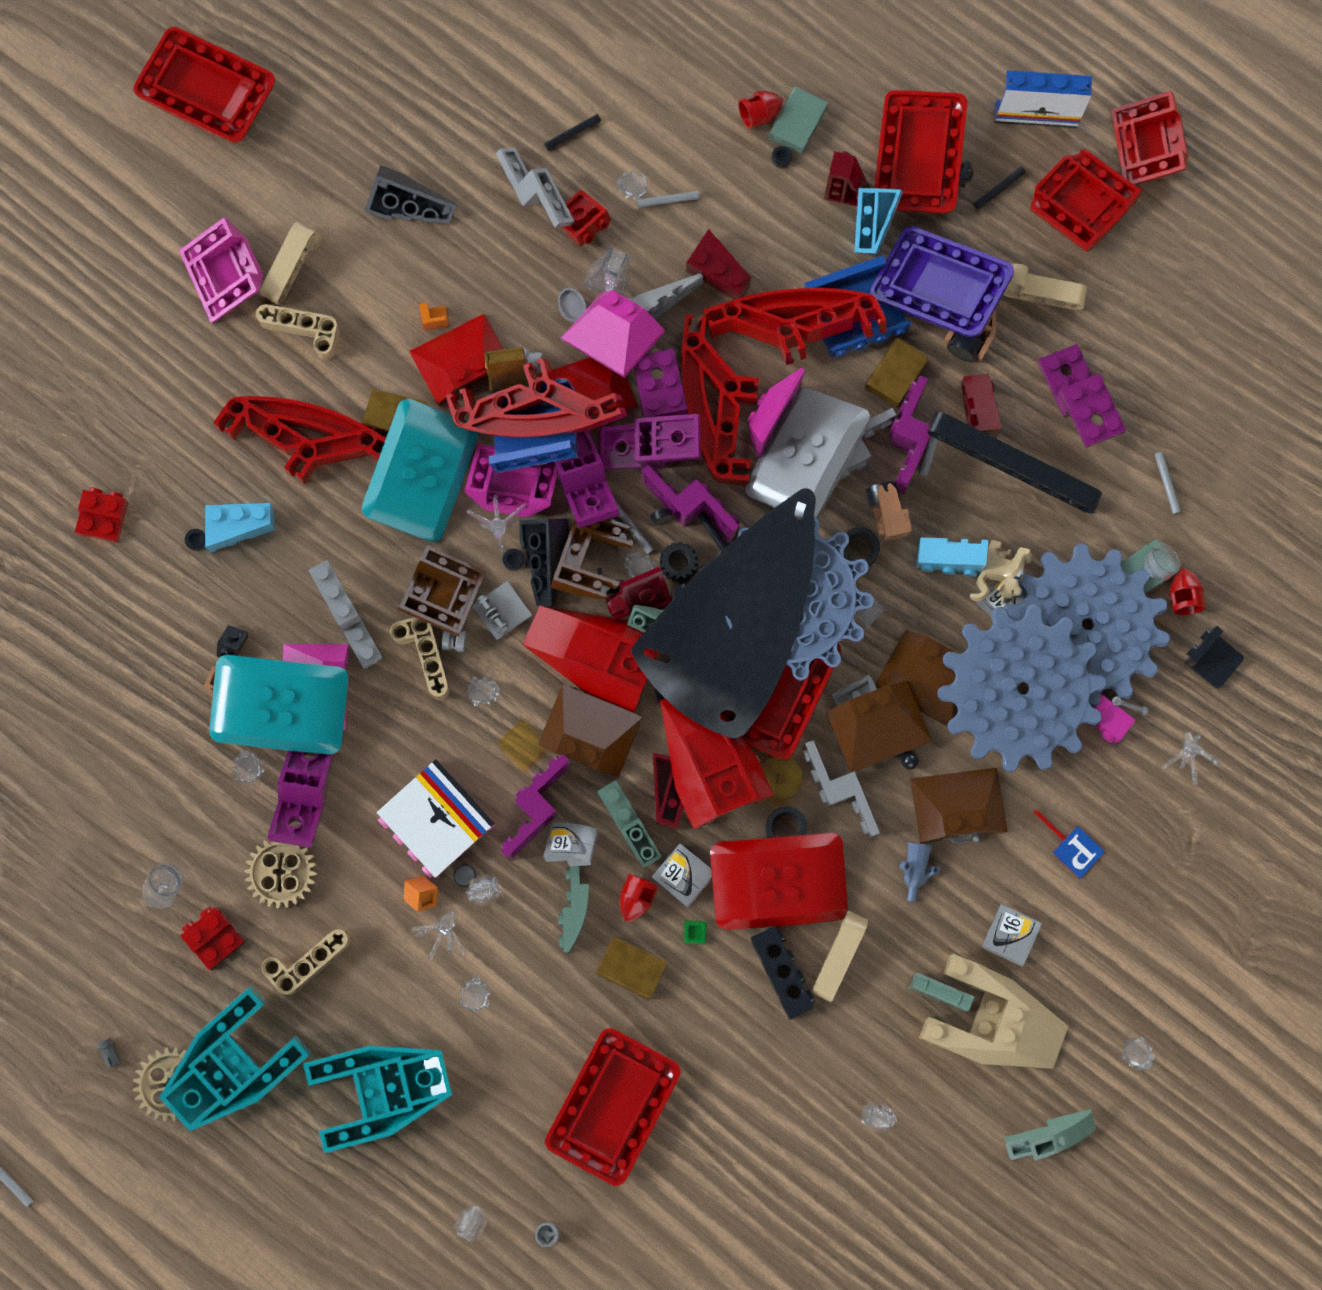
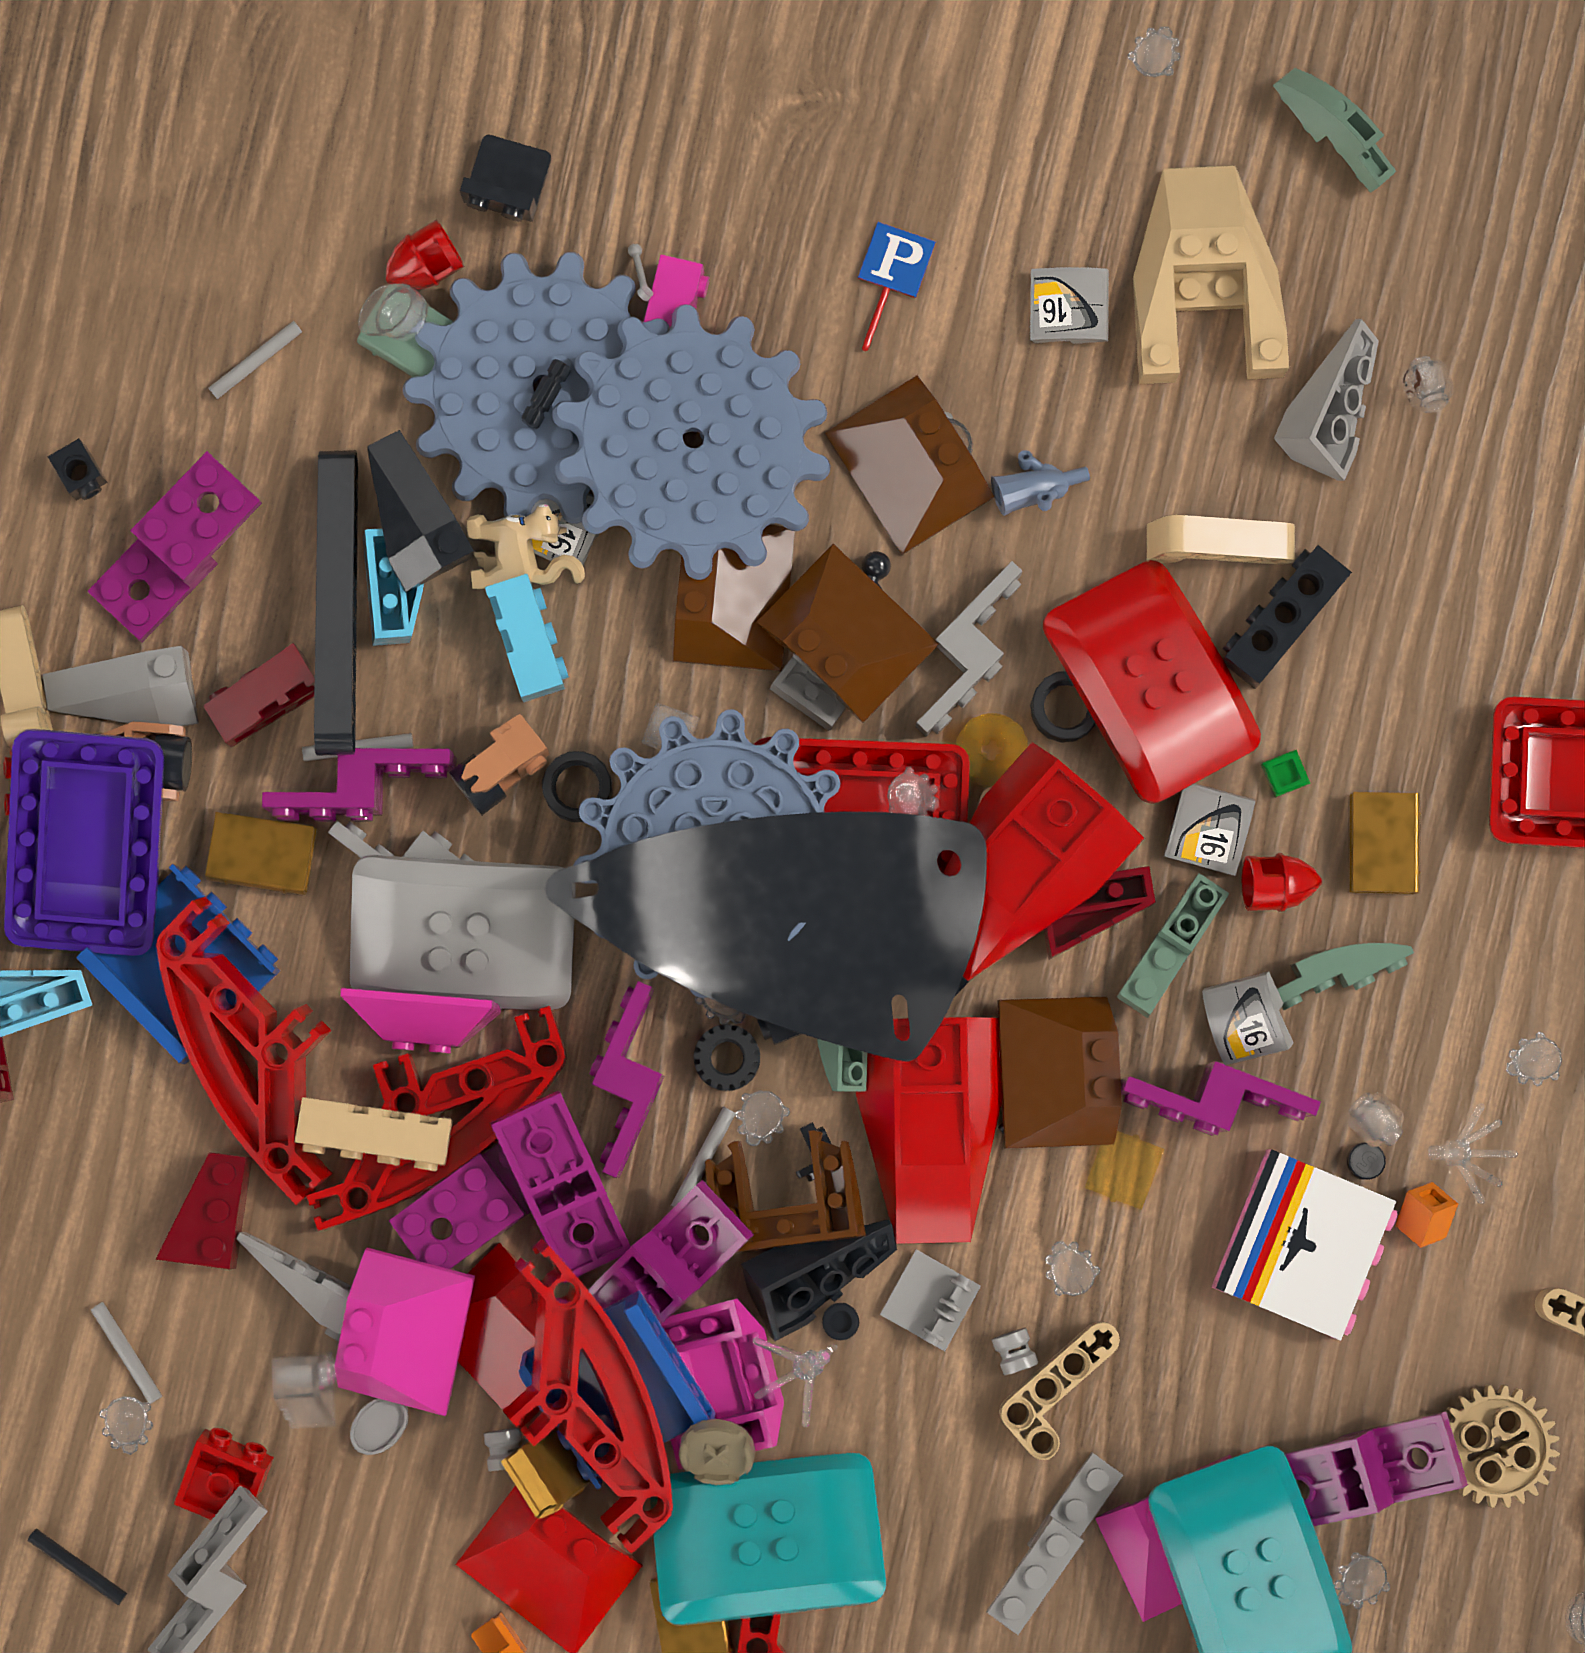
camera: 115 degrees left, 5 degrees up
(442, 590) = (950, 1407): reddish brown slope -> none
(476, 461) = (716, 1451): none -> dark tan tile
(643, 590) = (803, 1088): dark red plate -> none
(661, 516) = (666, 1118): black tile -> none
(712, 531) = (656, 1021): black bar -> none
(722, 360) = (373, 1131): none -> tan wedge
(774, 718) = (912, 794): none -> clear piece
(886, 1050) = (1324, 415): none -> light grey wedge
(941, 992) = (1207, 369): sand green piece -> none
(1012, 347) = (129, 688): none -> light grey wedge
(1013, 501) = (390, 608): none -> medium azure wedge
(1038, 521) = (415, 519): none -> black wedge
(1082, 620) = (545, 393): none -> black axle
(1151, 359) = (70, 457): none -> black brick
(1191, 749) = (665, 156): clear plant -> none

